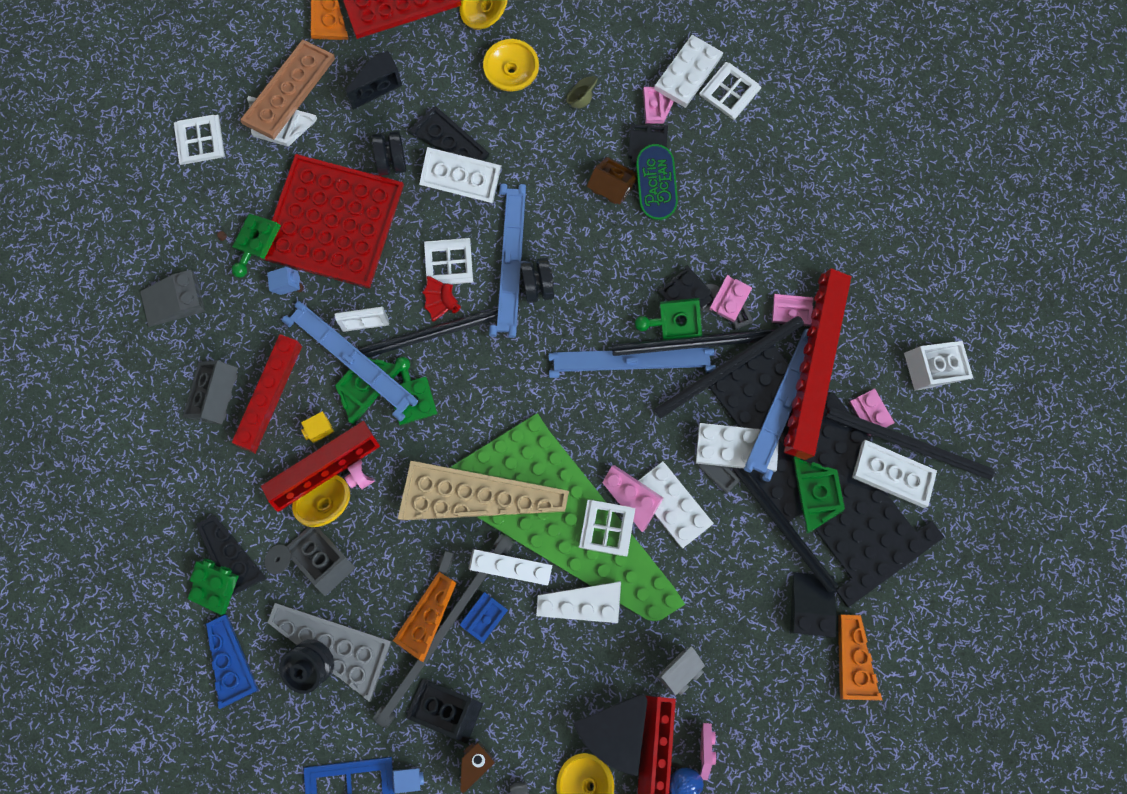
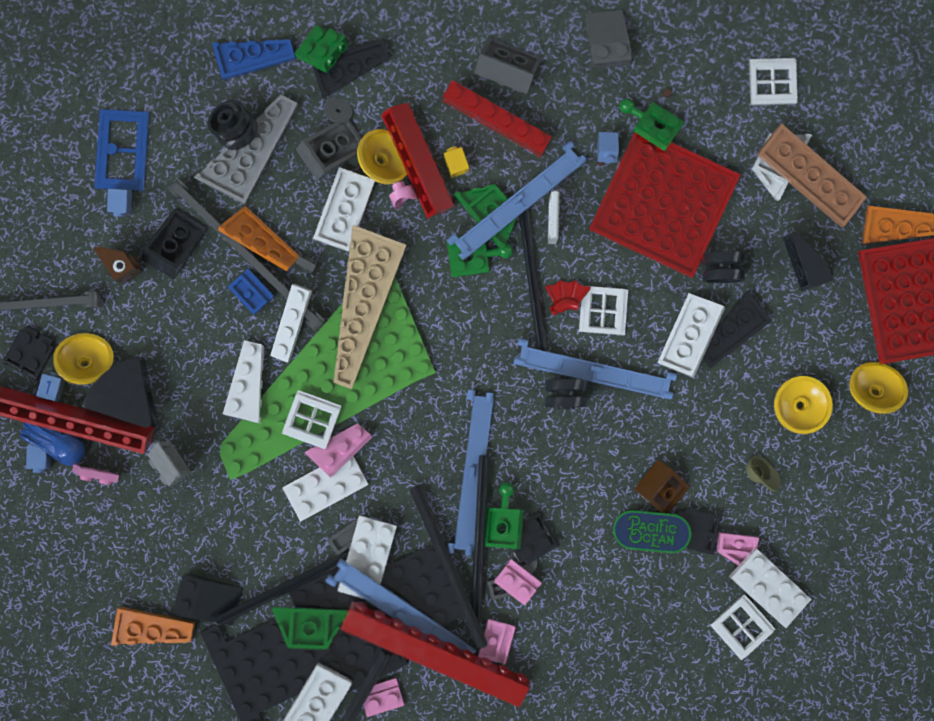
camera: 95 degrees right, 10 degrees up
(382, 534) = (344, 208): none -> white plate

